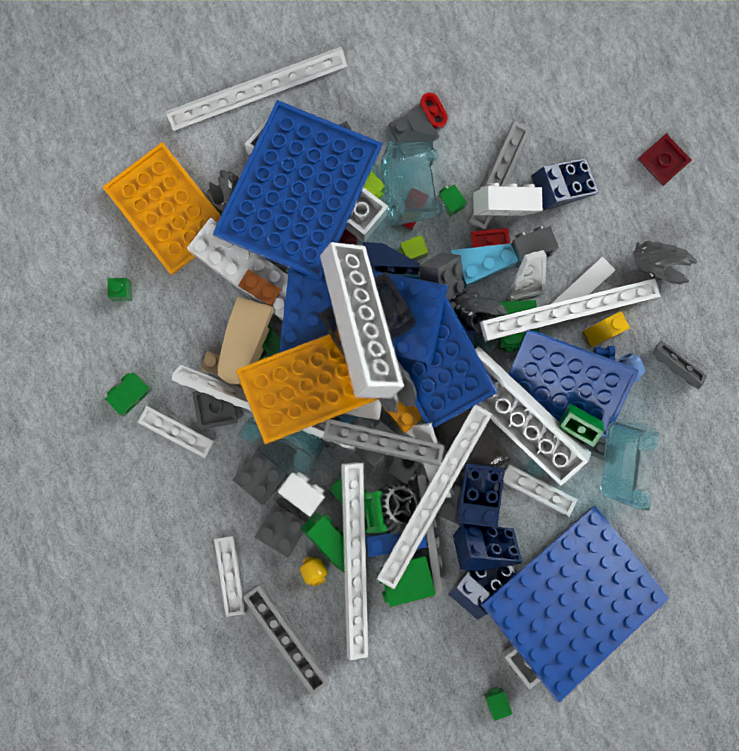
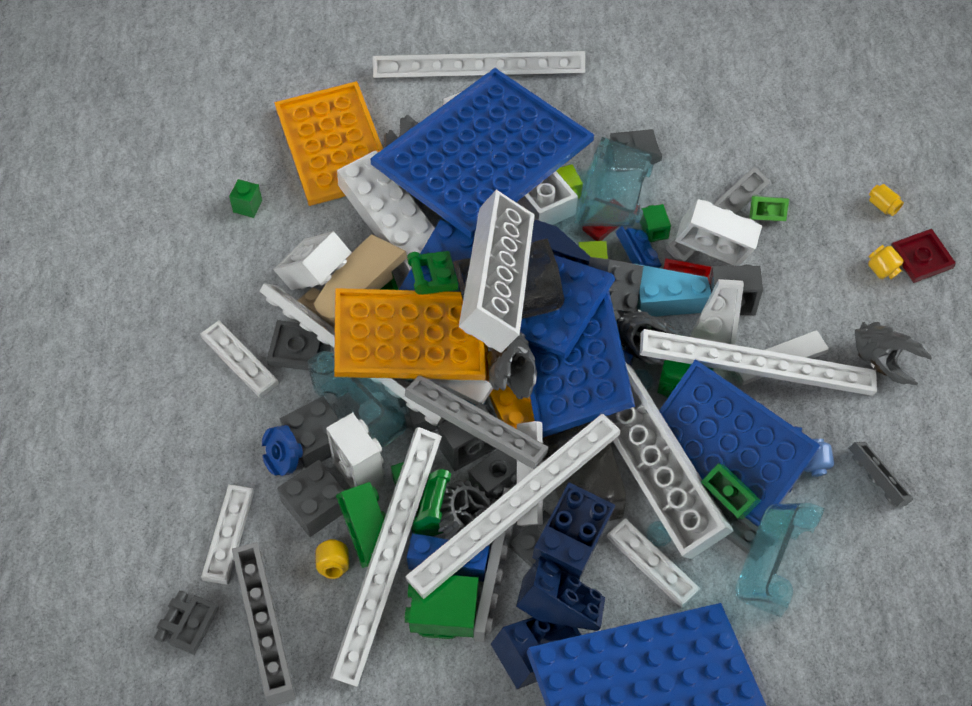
camera: 25 degrees right, 25 degrees down
(127, 393) = (204, 301): green brick -> none
(201, 337) = (313, 261): none -> white brick
(236, 653) = (193, 624): none -> dark grey plate
(243, 503) = (281, 450): none -> blue plate
(259, 287) = (399, 229): dark orange plate -> none
(309, 322) = (440, 270): none -> green plate
(434, 111) = (668, 138): red plate -> none
(447, 230) = (638, 247): none -> blue plate
(536, 159) = (768, 208): none -> bright green slope
(565, 183) = (793, 244): dark blue slope -> none
(606, 329) = (800, 405): yellow slope -> none
(624, 116) = (885, 199): none -> yellow brick
(638, 177) = (885, 262): none -> yellow head

